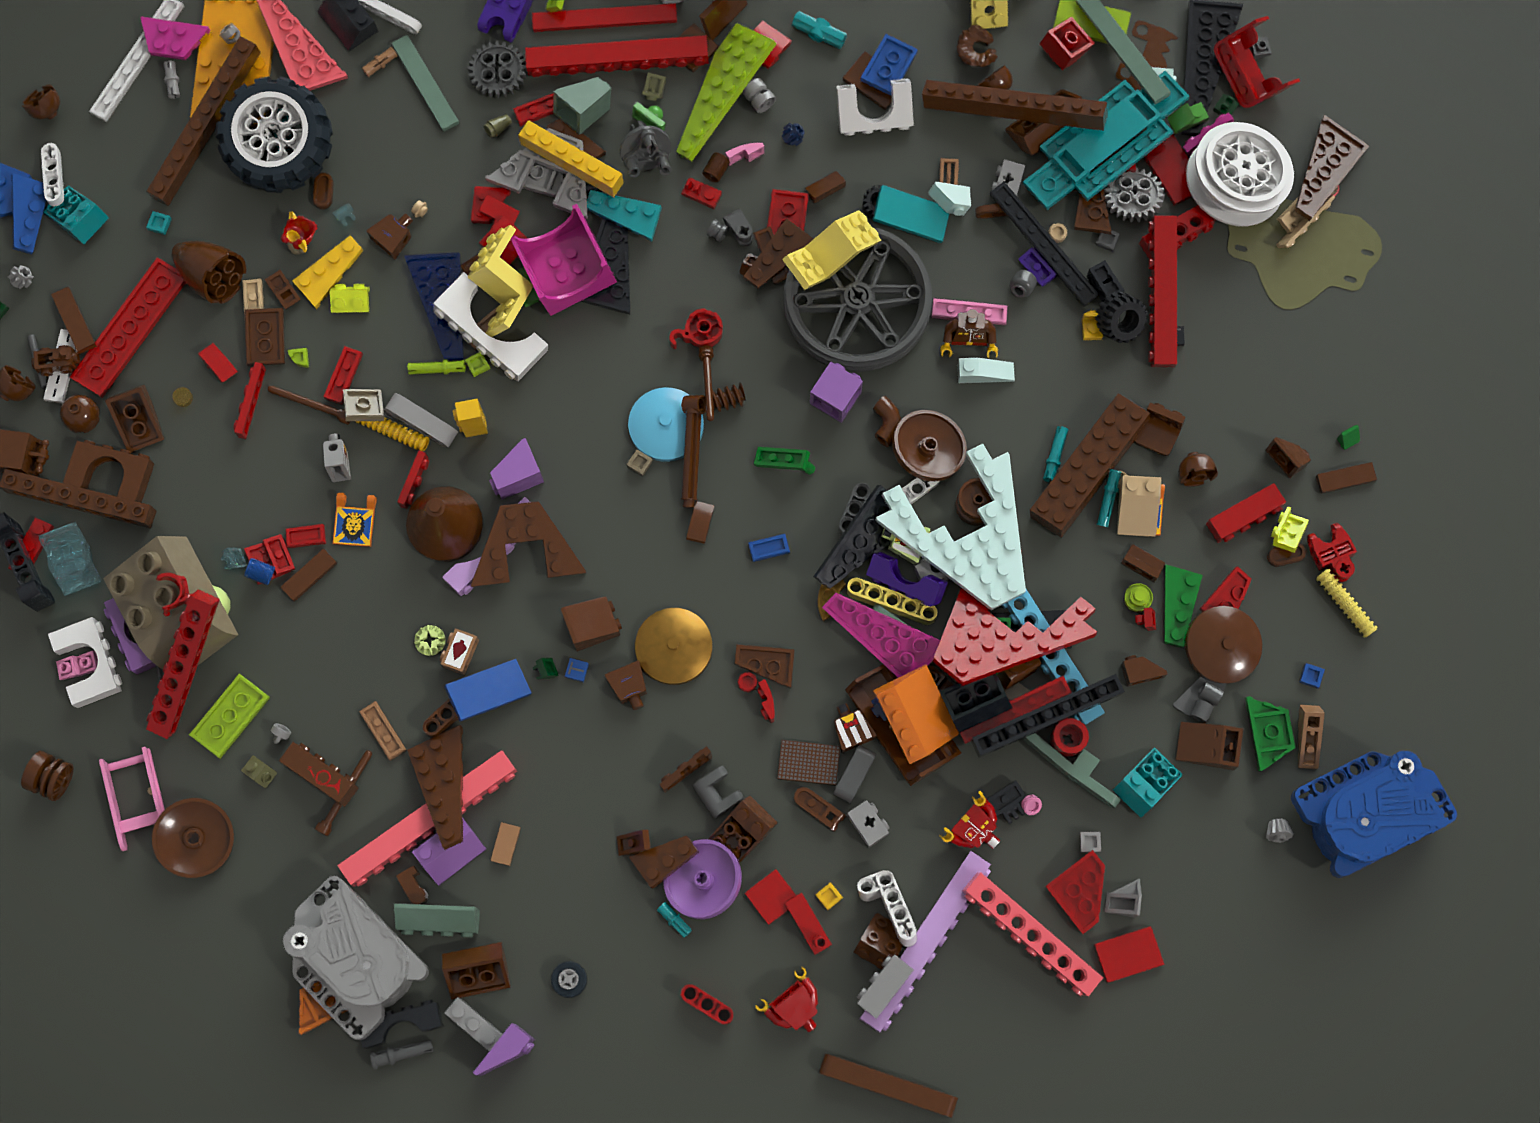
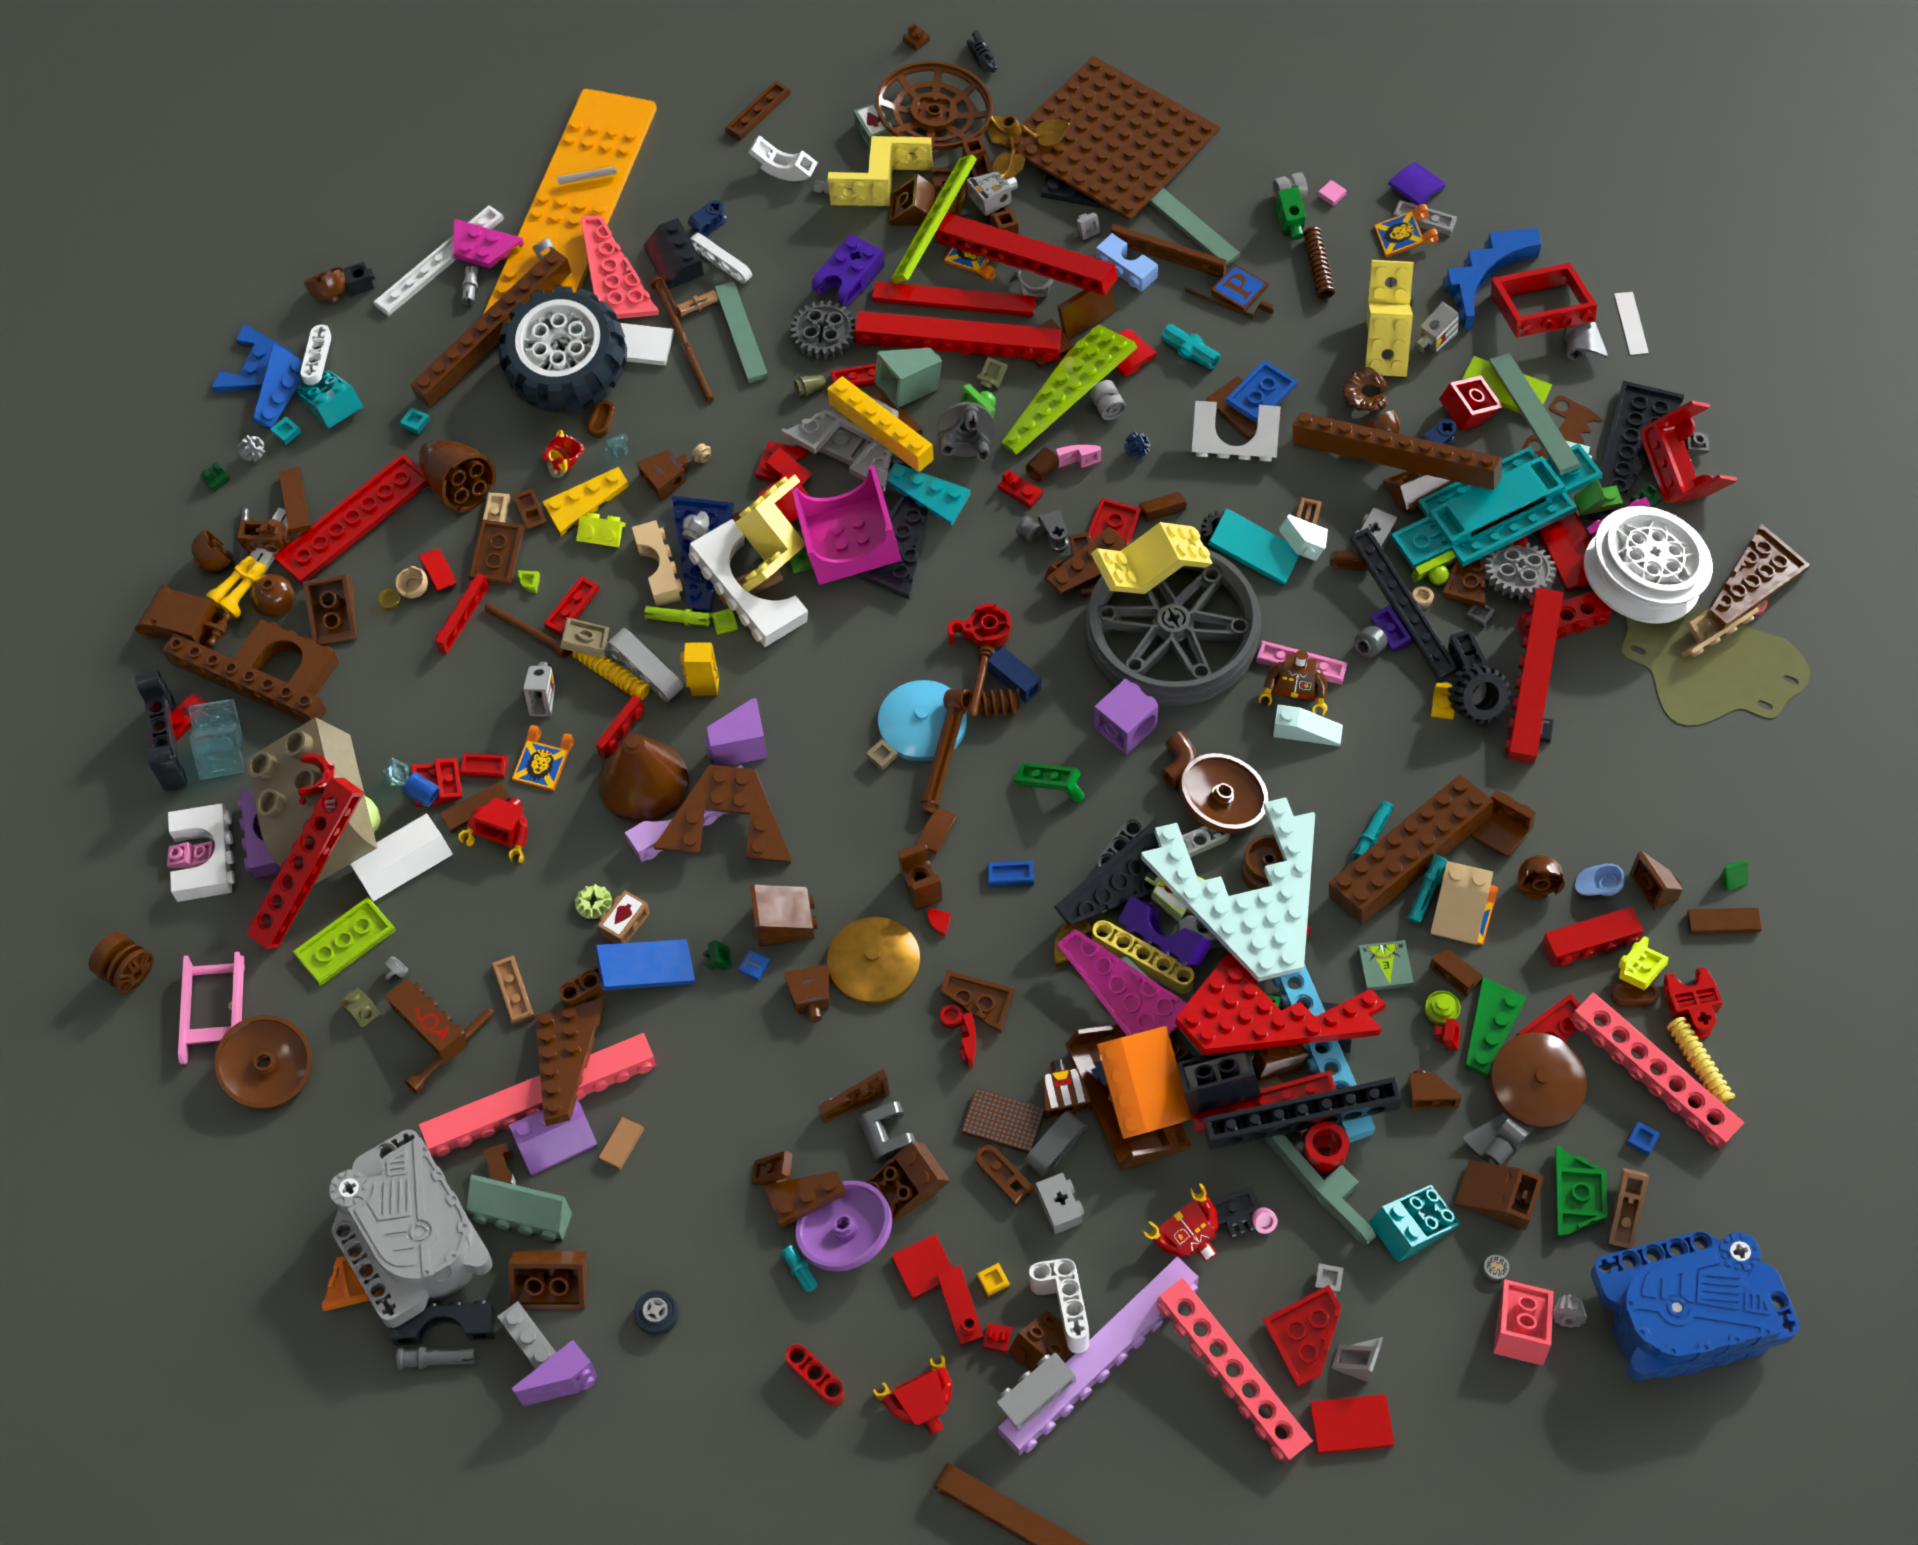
camera: 15 degrees right, 15 degrees down
(45, 253) = (285, 430): none -> teal plate
(45, 428) = (249, 573): none -> yellow piece
(64, 86) = (358, 278): none -> black brick
(198, 379) = (411, 582): none -> tan hair
(259, 633) = (401, 857): none -> white slope
(334, 587) = (499, 822): none -> red torso
(340, 48) = (660, 286): none -> reddish brown bar
(343, 109) = (647, 343): none -> white tile
(396, 304) = (662, 583): none -> tan arch
(433, 283) = (695, 526): none -> light grey rock
(691, 558) = (914, 866): none -> reddish brown piece
(719, 601) = (939, 921): none -> red tile
(734, 368) = (1014, 674): none -> dark blue brick
(842, 943) = (997, 1338): none -> red tile
(1044, 83) = (1442, 432): none -> dark blue piece
(1066, 208) = (1435, 569): none -> lime tile
(1086, 569) = (1385, 965): none -> sand green tile
(1216, 805) = (1496, 1267): none -> light grey tile
(1244, 463) = (1600, 879): none -> light blue cap
(1246, 846) = (1524, 1323): none -> coral slope
(1374, 651) = (1669, 1072): none -> coral brick

